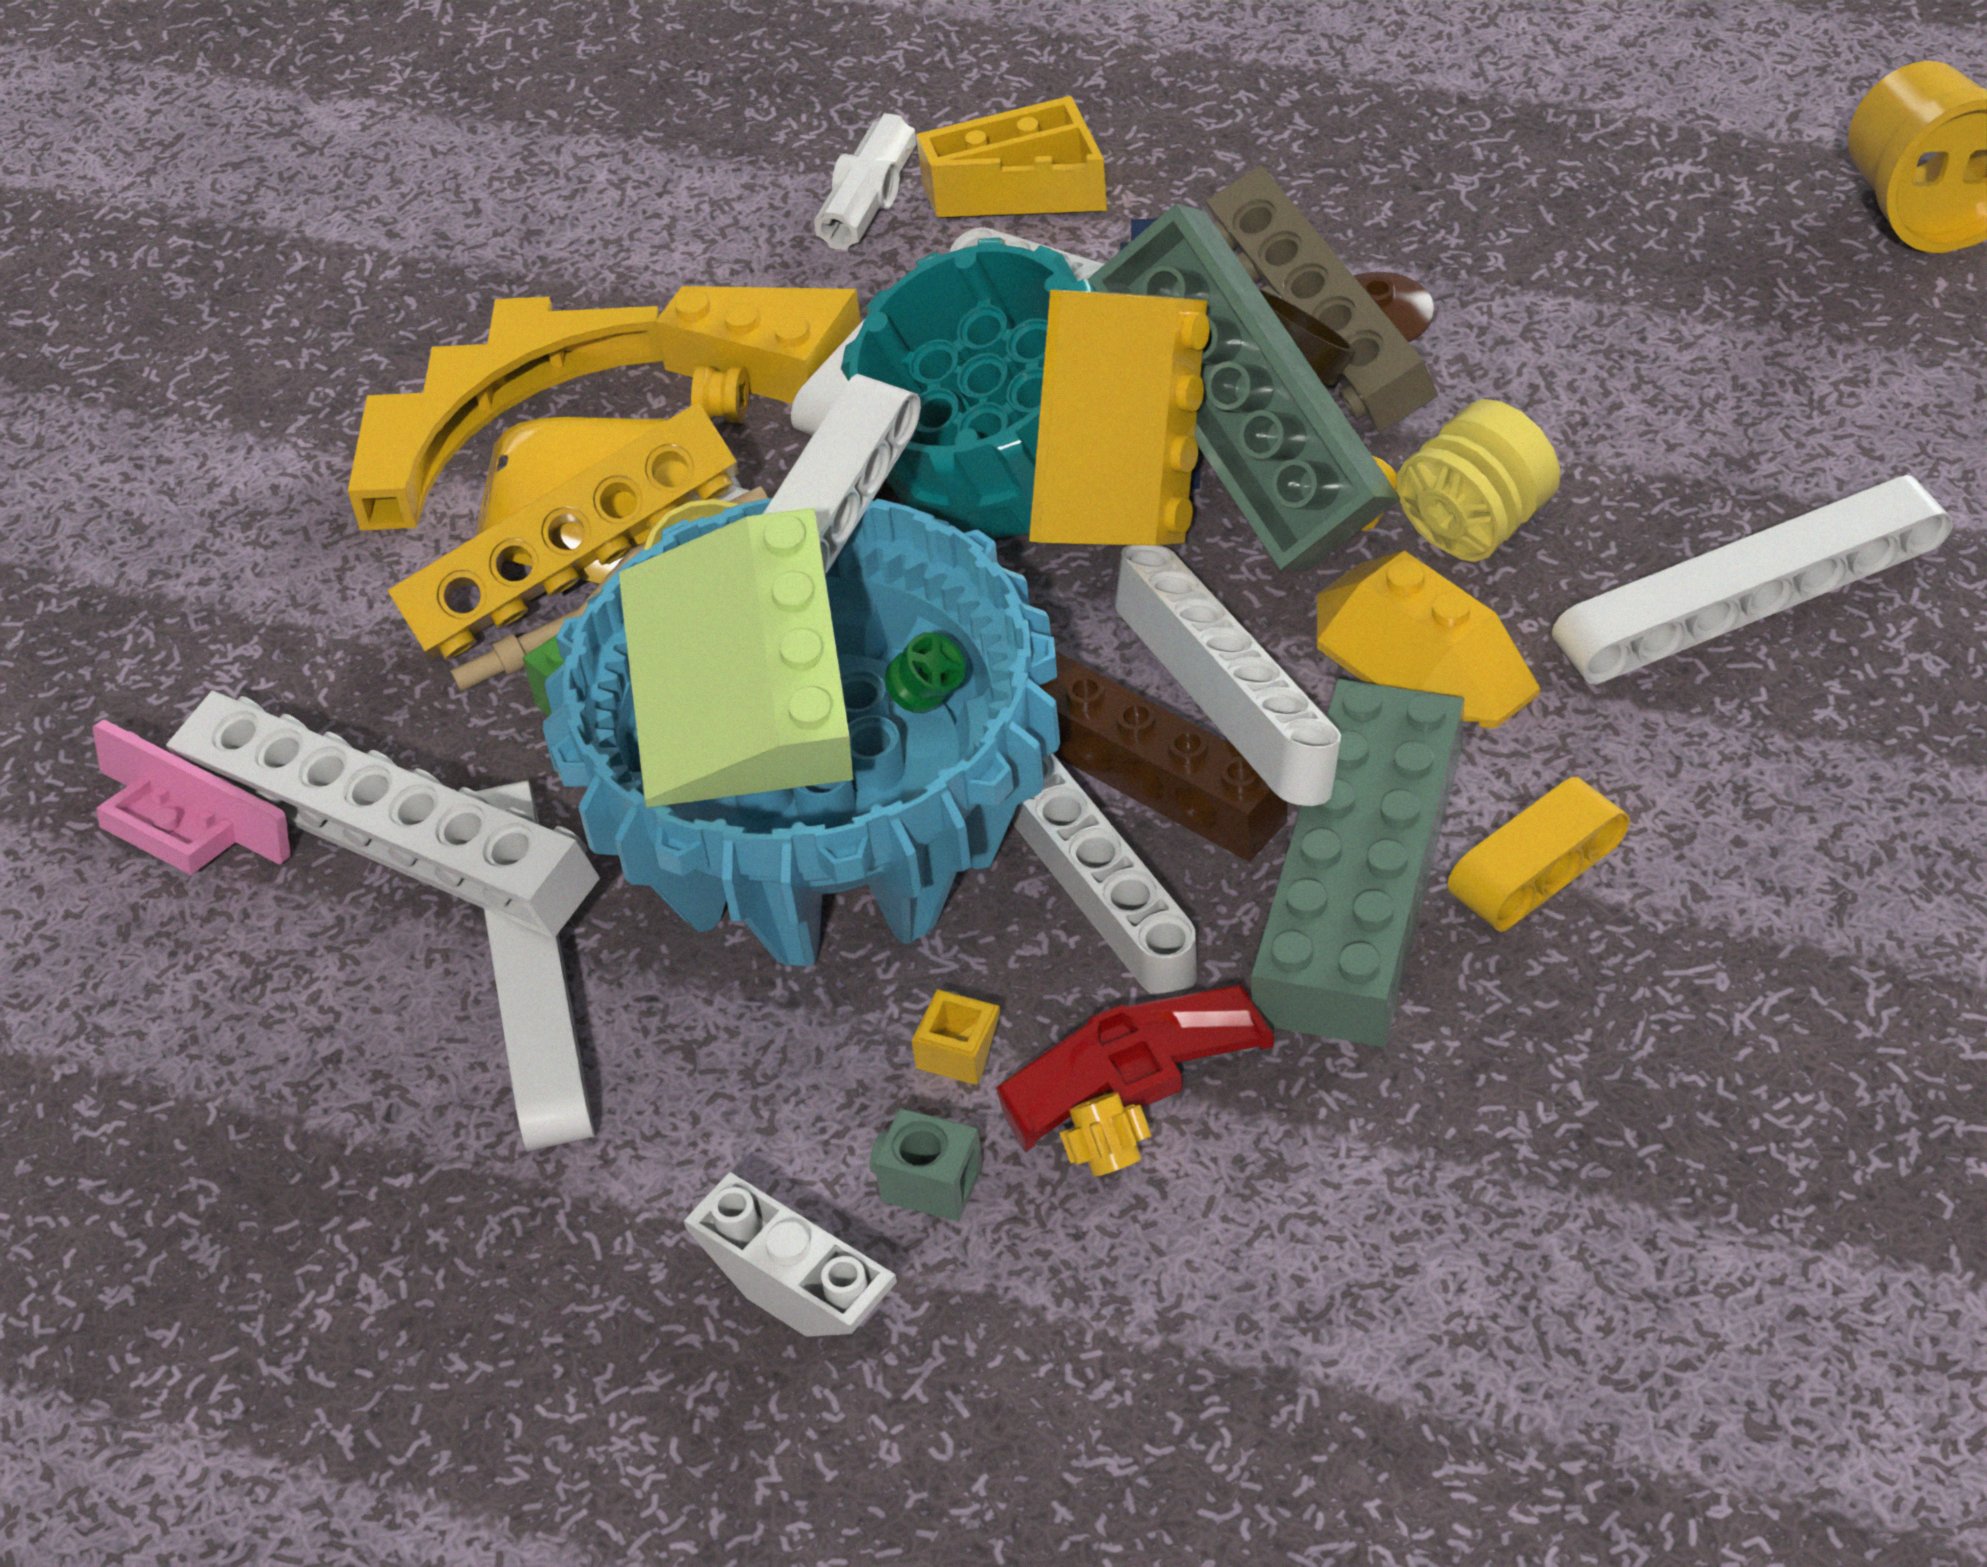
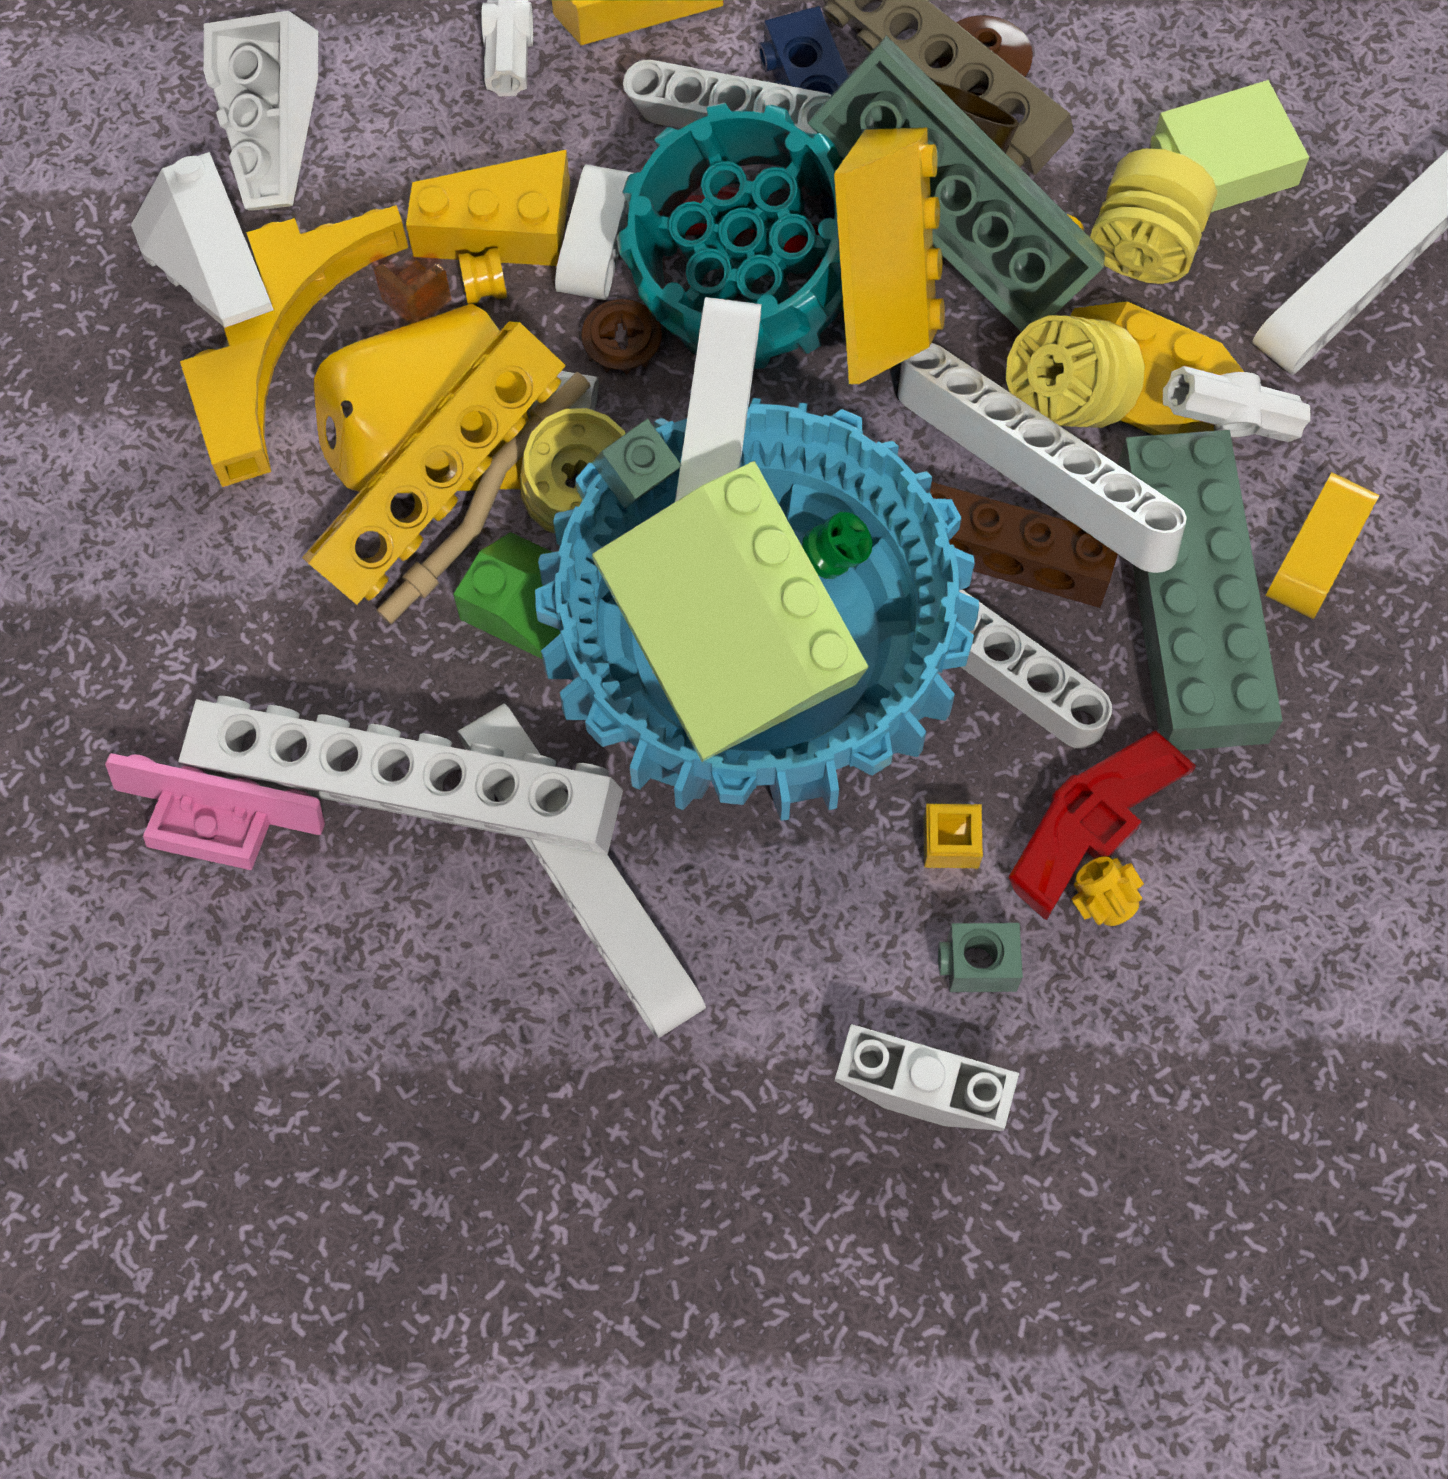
camera: 25 degrees left, 20 degrees up
(450, 295) = (198, 243): none -> white wedge
(588, 183) = (265, 97): none -> white wedge
(645, 392) = (415, 291): none -> clear orange panel
(711, 499) = (636, 463): none -> sand green brick
(1309, 600) = (1099, 374): none -> light yellow wheel
(1487, 675) = (1236, 404): none -> white piece
(1616, 442) = (1238, 140): none -> yellowish green brick

